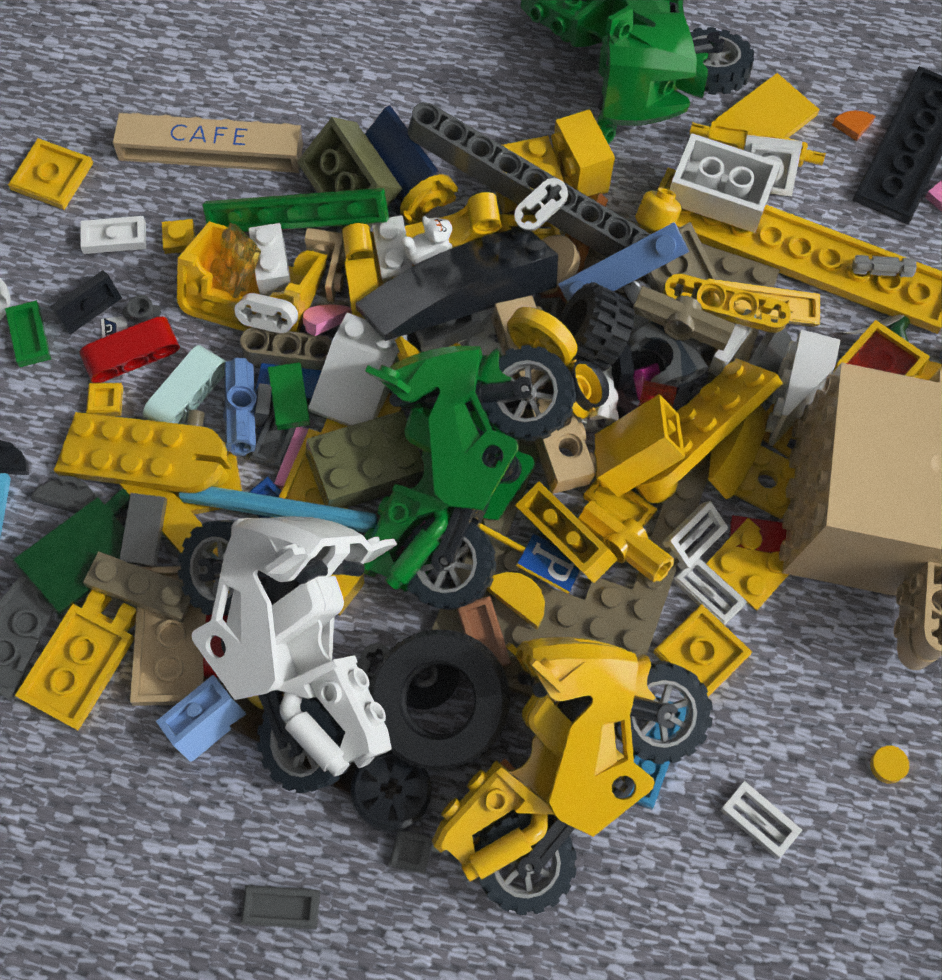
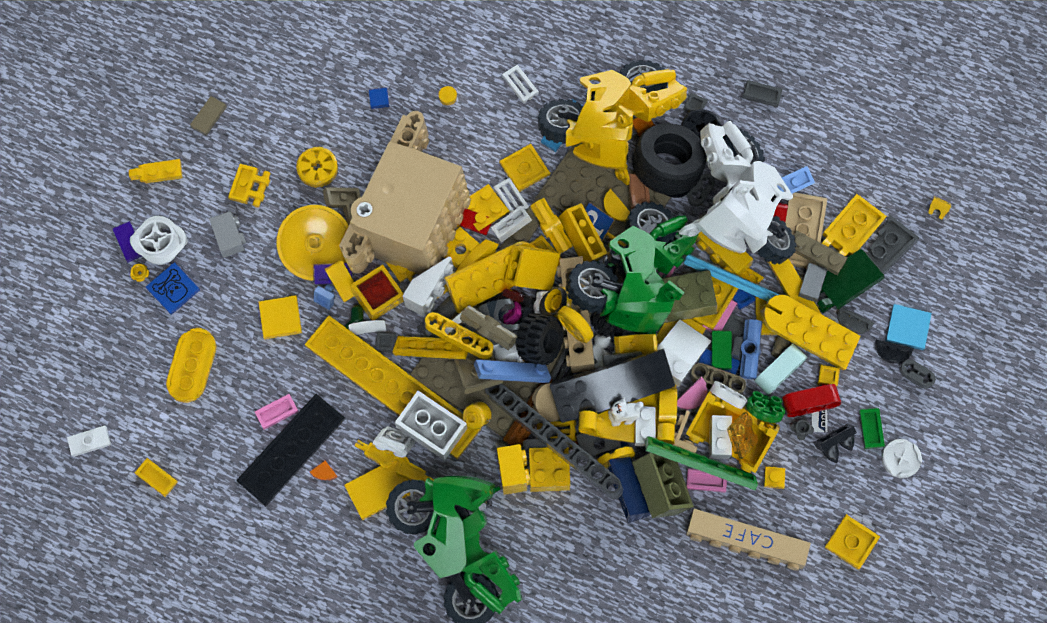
camera: 165 degrees left, 5 degrees up
(113, 234) = (815, 484): white plate -> none
(203, 317) = (765, 407): none -> green tile
(535, 199) = (554, 418): white beam -> none
(835, 314) = (385, 342): none -> dark grey tile
(884, 266) = (349, 357): light grey axle -> none

